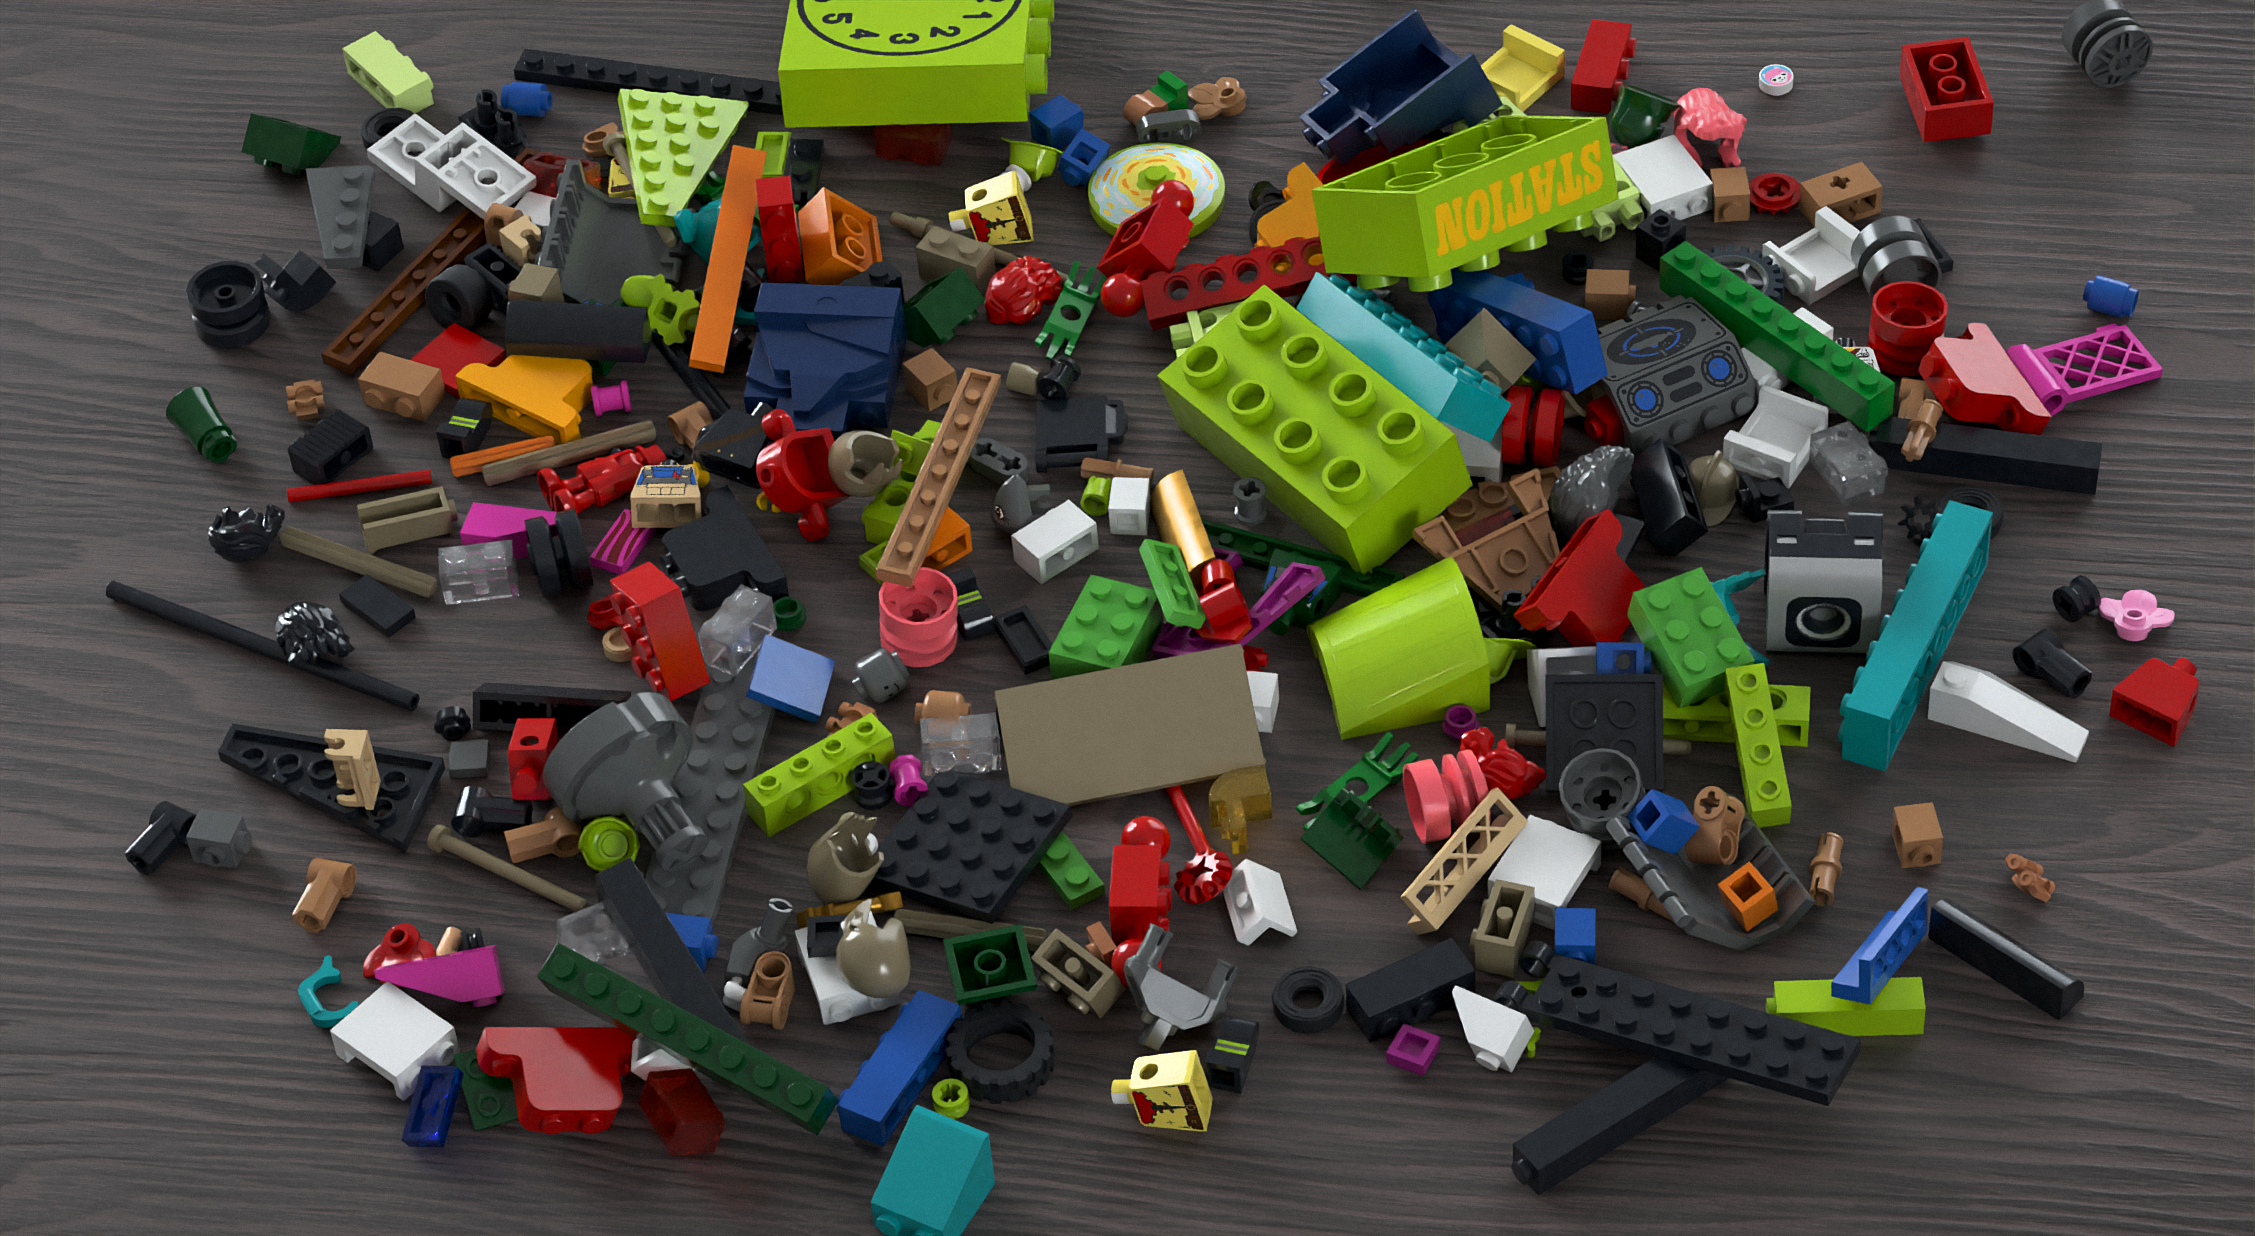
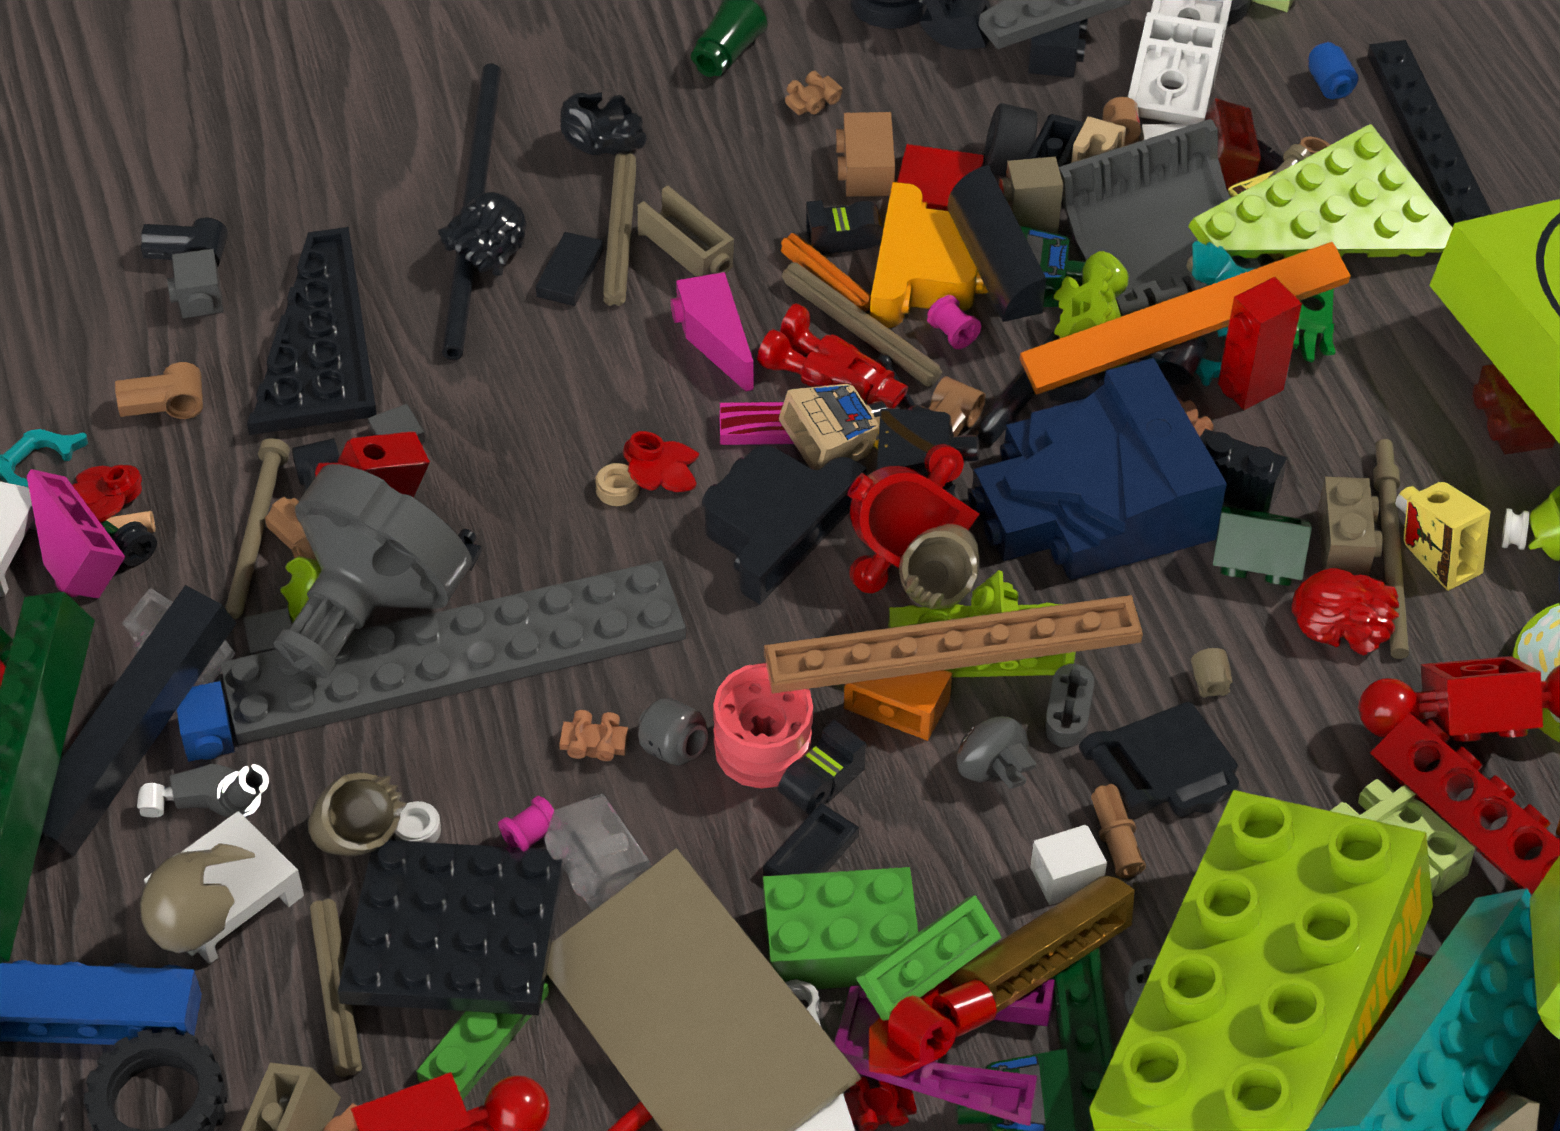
camera: 60 degrees right, 5 degrees up
(330, 448) = (753, 138): black brick -> none
(353, 766) = (293, 334): tan hinge -> none
(359, 486) = (725, 186): red bar -> none
(408, 289) = (979, 99): reddish brown plate -> none
(452, 723) = (433, 394): black plate -> none
(478, 572) = (644, 321): clear brick -> none
(496, 124) = (1277, 66): black connector -> none
(500, 705) = (490, 465): black brick -> none
(556, 553) = (688, 369): black wheel -> none
(658, 631) = (594, 495): red brick -> none
(737, 630) = (649, 567): clear brick -> none
(769, 991) = (158, 829): medium nougat piece -> none
(777, 149) = (1398, 303): lime tile -> none
(789, 613) = (728, 608): dark green plate -> none
(790, 678) = (624, 649): tile -> none
(804, 167) = (1396, 338): black hinge -> none
(816, 775) = (495, 738): lime brick -> none
(824, 935) = (224, 830): black plate -> none
(837, 239) = (1305, 413): orange slope -> none
(871, 785) = (502, 784): black wheel -> none
(879, 904) = (292, 832): pearl gold bar -> none
(930, 379) = (1153, 582): medium nougat brick -> none
(941, 704) = (643, 813): medium nougat head -> none
(951, 1088) = (69, 1064): lime bush -> none
(989, 964) = (247, 1027): dark green slope -> none
(1055, 541) = (968, 812): white brick -> none
(1059, 378) = (1231, 706): black bush -> none
(1074, 299) = (1316, 678): green piece -> none
(1096, 496) = (1070, 817): lime hose -> none

